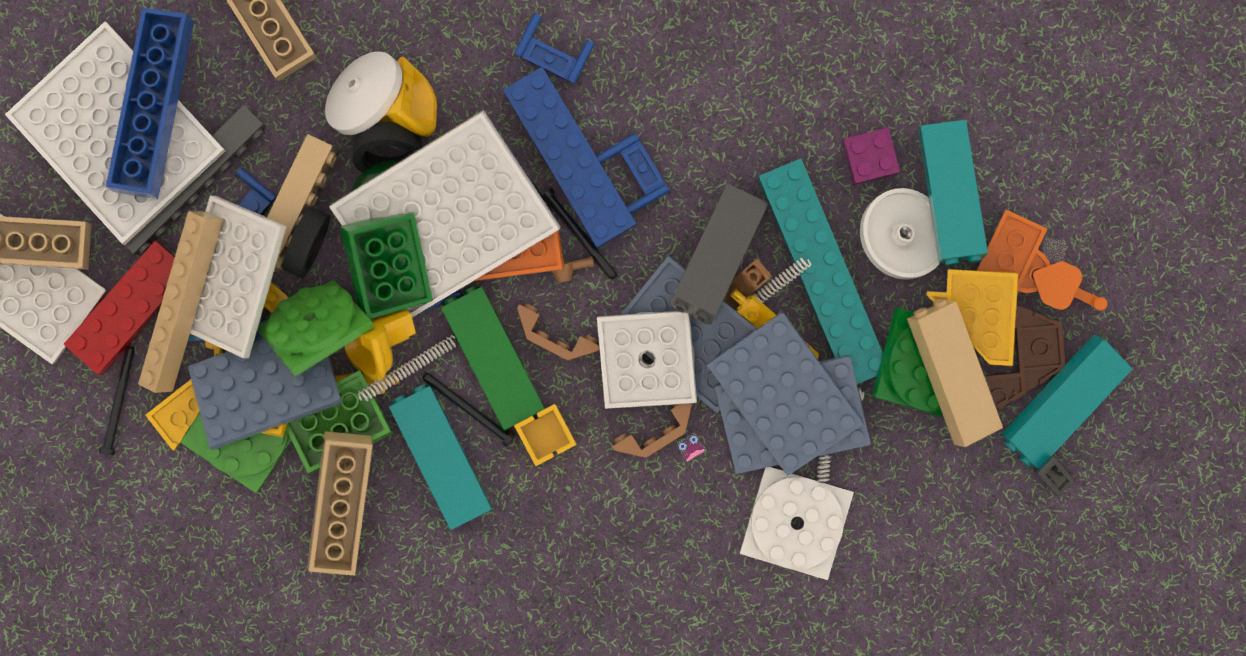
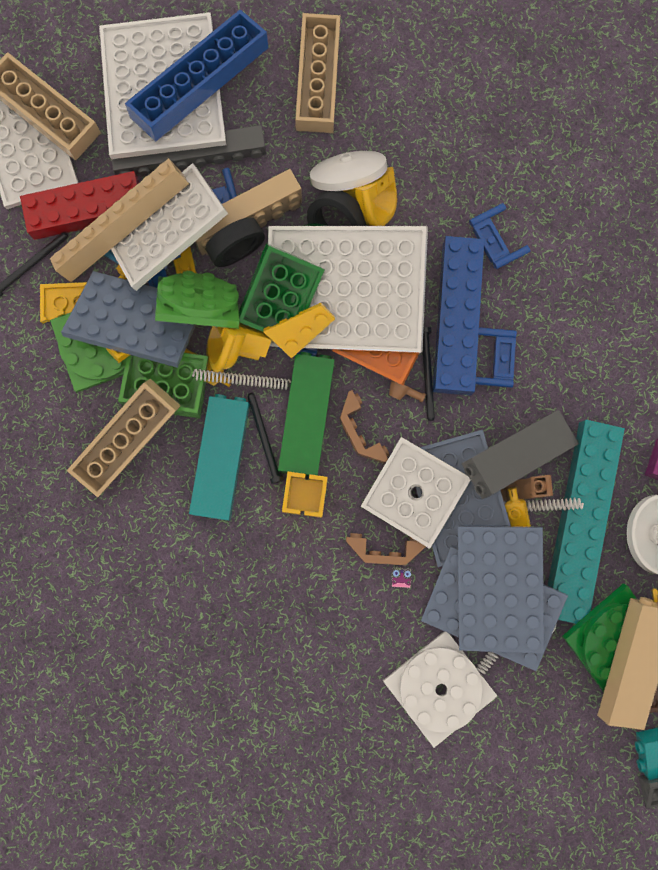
camera: 30 degrees right, 5 degrees down
(430, 287) = (299, 330): none -> yellow wing

